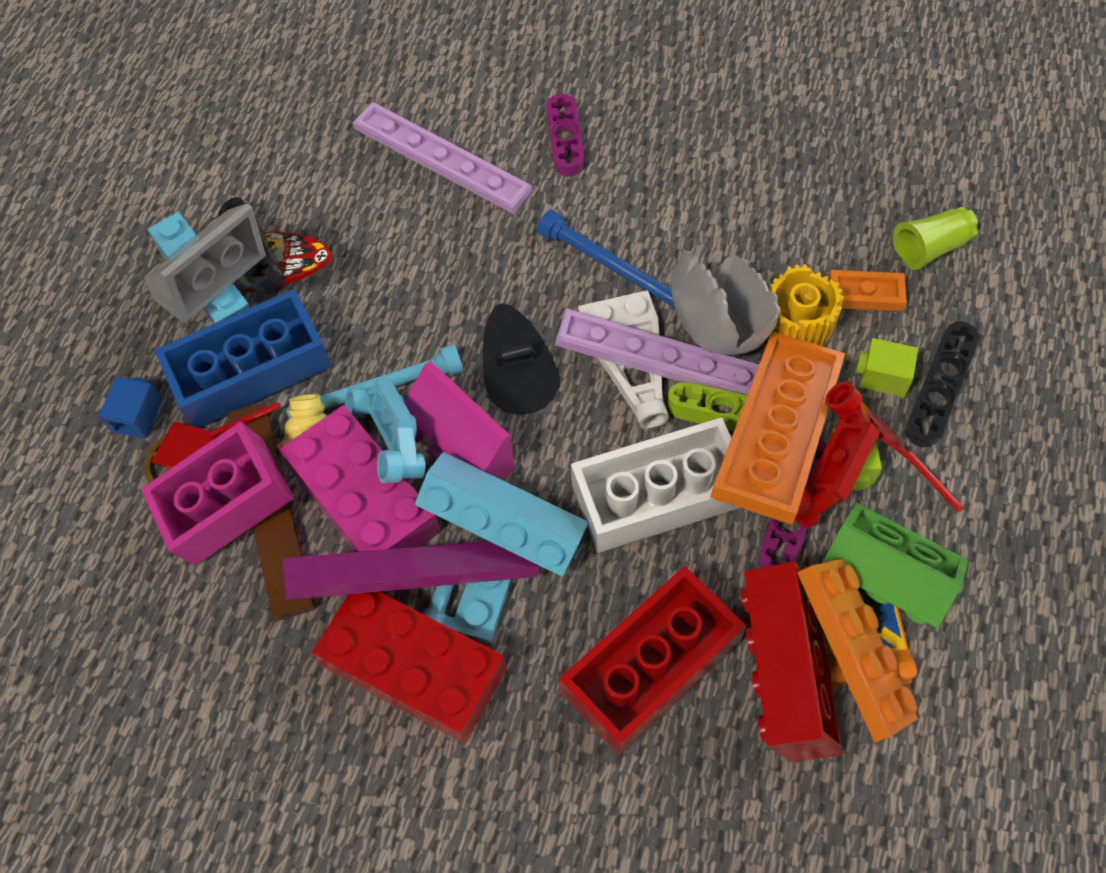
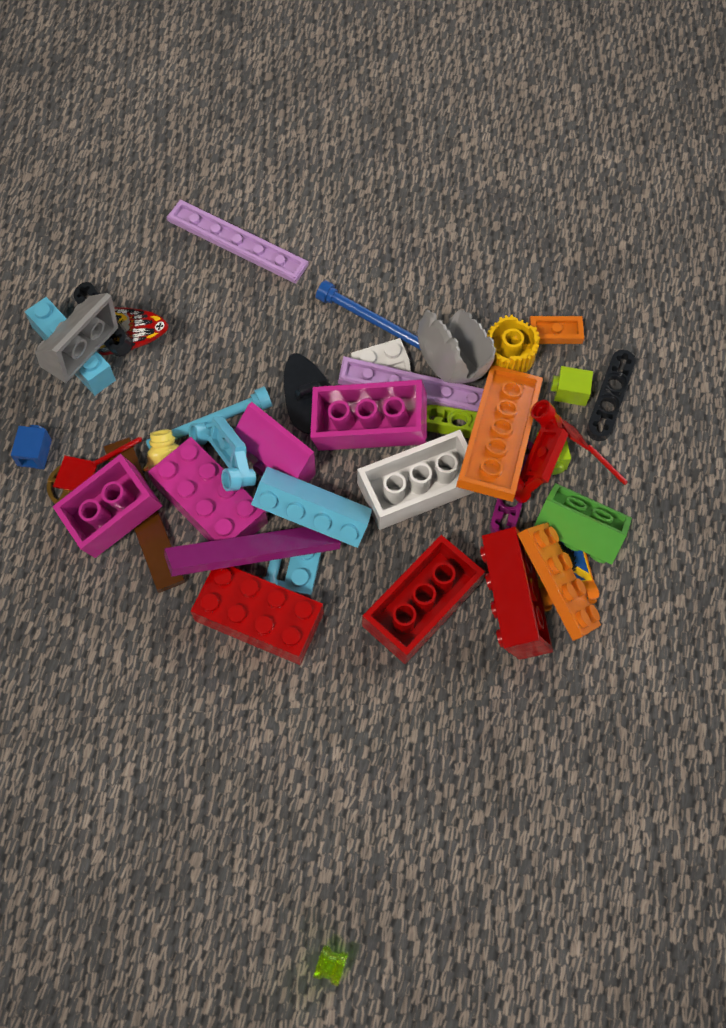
camera: 10 degrees left, 5 degrees up
(243, 359) = (111, 406): blue brick -> none
(568, 124) = (332, 211): magenta beam -> none
(595, 390) = (369, 415): none -> dark pink brick
(931, 237) = (602, 287): lime plant -> none

